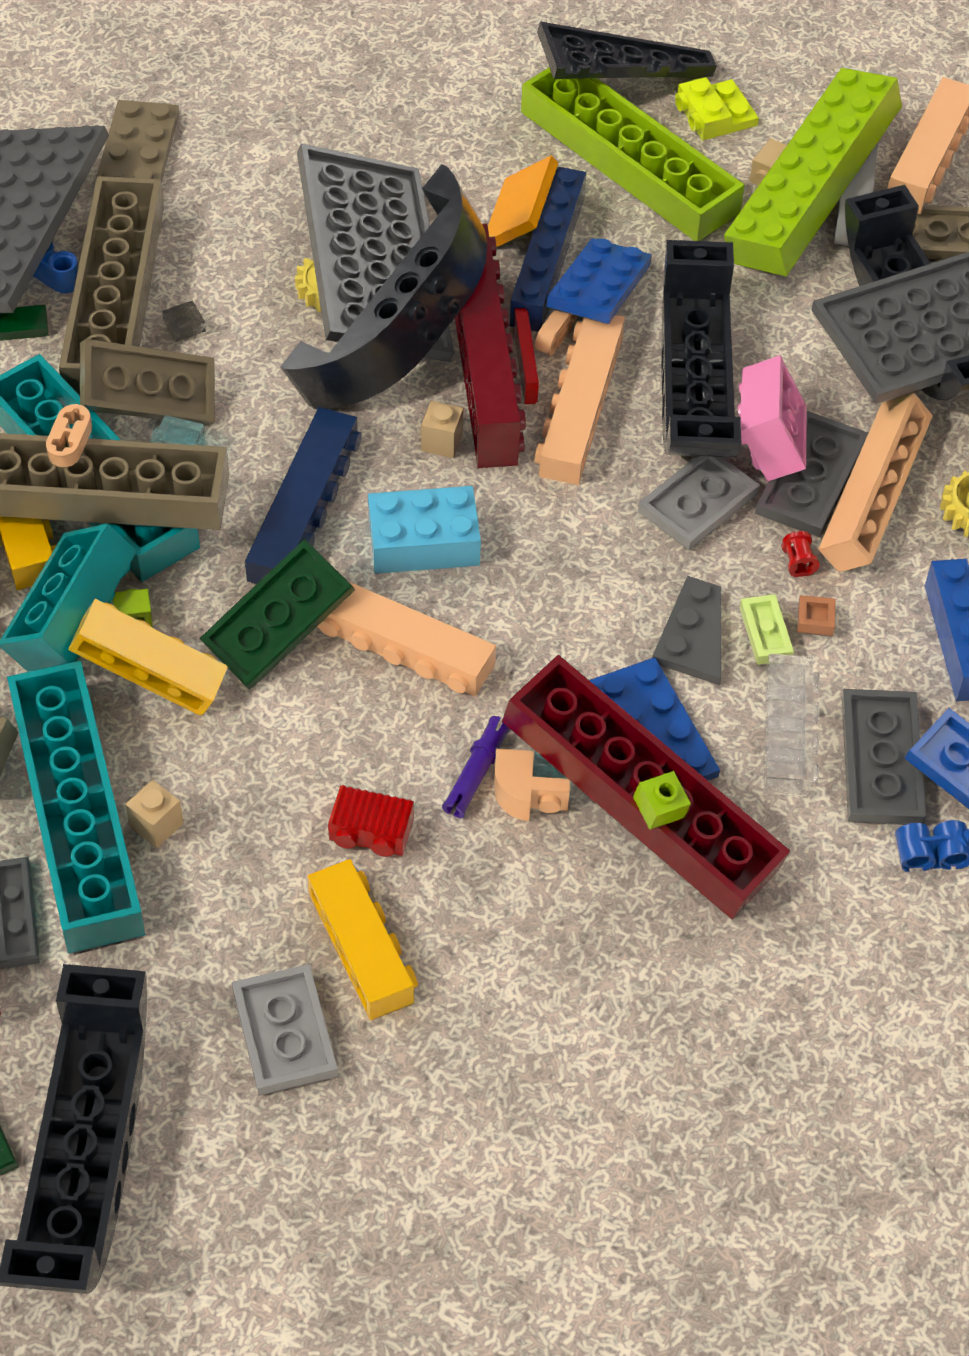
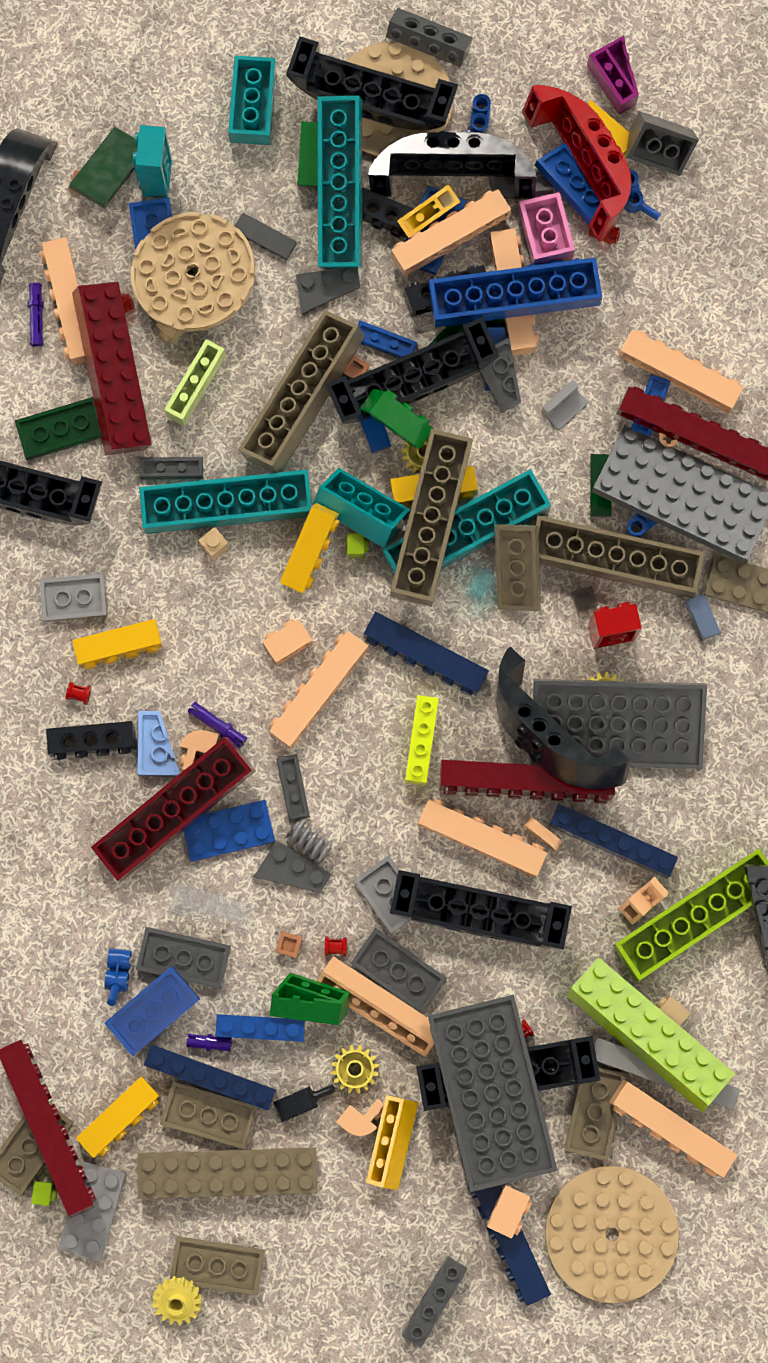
camera: 100 degrees right, 25 degrees up
(76, 437) = (449, 514): light nougat beam -> none
(194, 195) = (702, 617): none -> sand blue slope
(225, 258) = (614, 625): none -> red brick
(277, 614) = (334, 625): dark green tile -> none
(314, 684) = (287, 641): none -> light nougat brick
(371, 821) = (189, 659): red brick -> none
(424, 529) = (388, 721): medium azure brick -> none
(442, 429) = (465, 745): tan brick -> none
(463, 988) = (78, 693): none -> red bush
(491, 477) = (421, 740): none -> neon yellow brick
(522, 201) = (654, 829): light orange tile -> none
(526, 356) = (520, 809): red tile -> none
(541, 855) = (153, 747): none -> light blue wing
(553, 1007) = (57, 736): none -> black brick
(572, 644) = (293, 787): none -> dark grey tile
(599, 280) = (575, 868): blue plate -> none
(621, 208) = (643, 900): none -> light nougat brick
(642, 605) = (310, 840): none -> light grey piece
(661, 809) = (155, 810): lime plate -> none
(714, 108) = (739, 988): neon yellow plate -> none
(765, 627) = (283, 912): yellowish green plate -> none
(773, 418) = (429, 948): bright pink brick -> none
(900, 559) = (309, 1001): none -> green wedge

